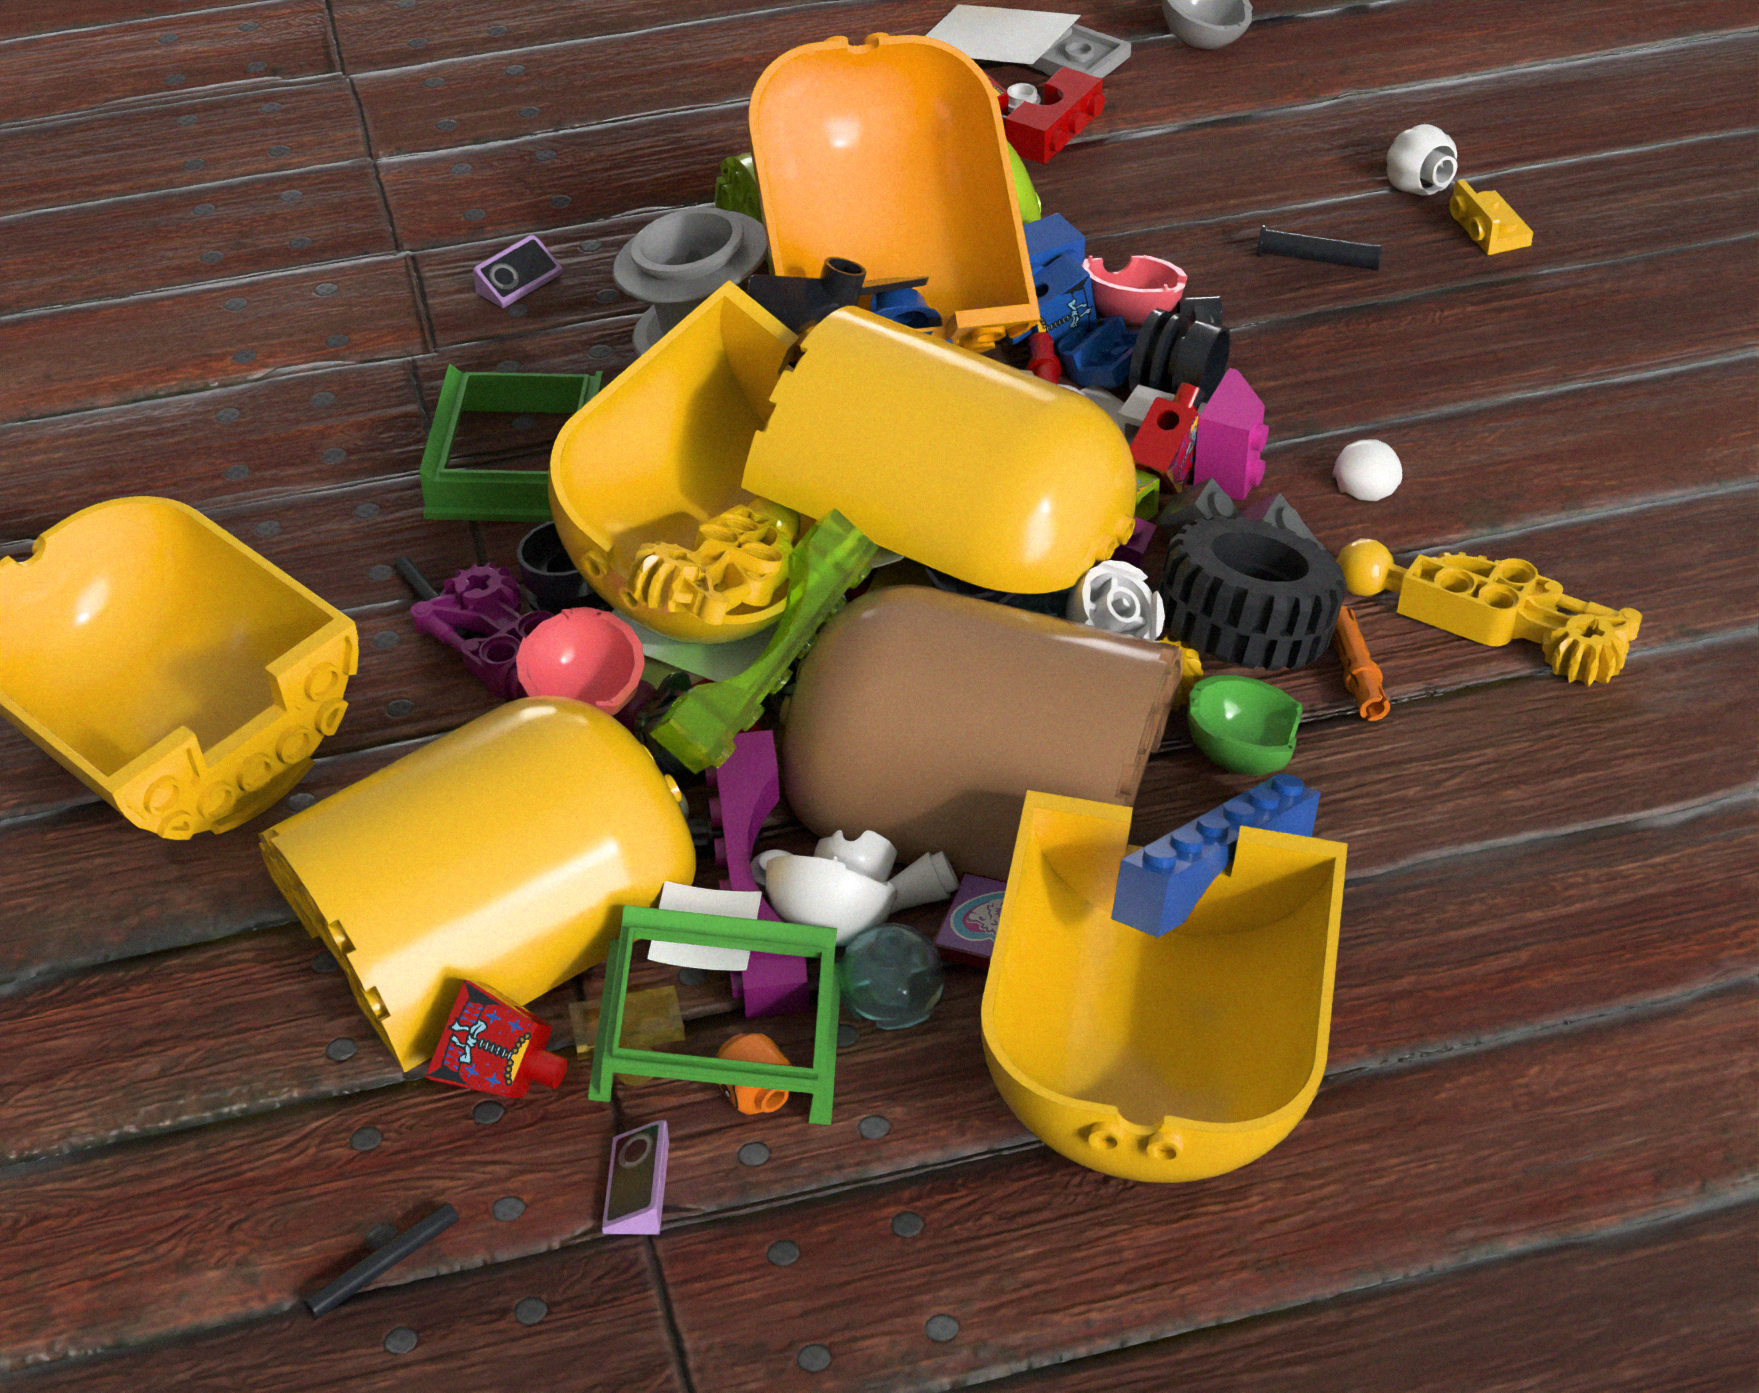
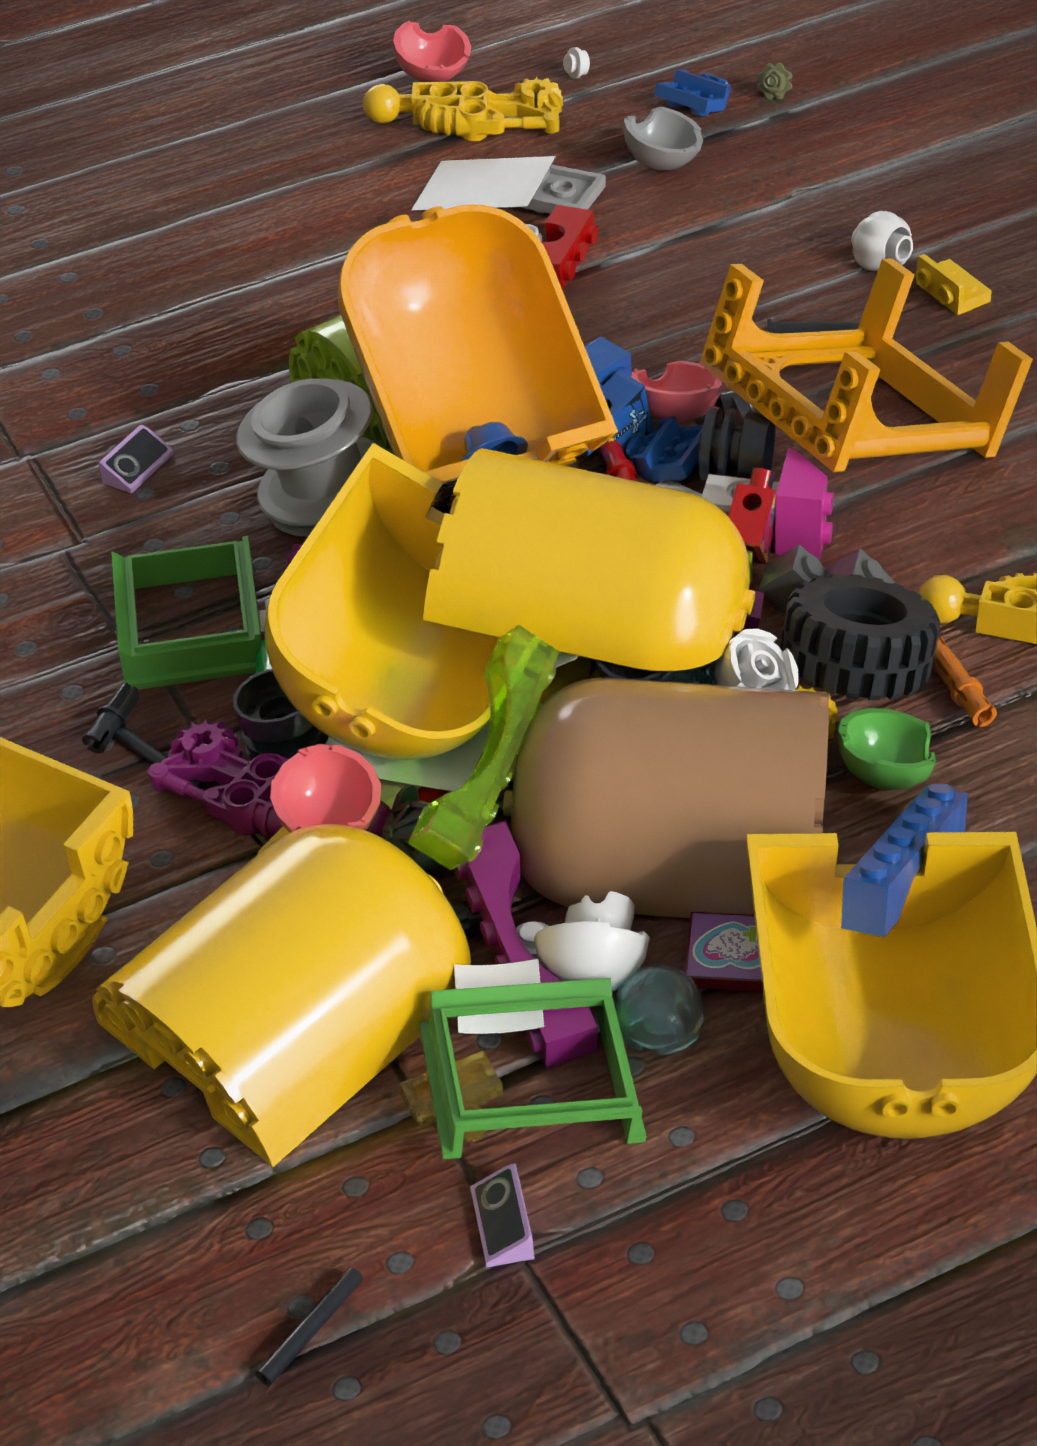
camera: 10 degrees left, 0 degrees up
(395, 544) = (111, 718): none -> black axle
(494, 1045) = (352, 1129): red torso -> none
(734, 553) = (435, 690): yellow arm -> none
(758, 1049) = (572, 1090): orange head -> none
(807, 301) = (441, 438): black piece -> none
(924, 881) = (664, 924): white cone -> none
(1297, 353) = (848, 429): none -> light orange arch
(1368, 470) = (917, 516): white hair -> none

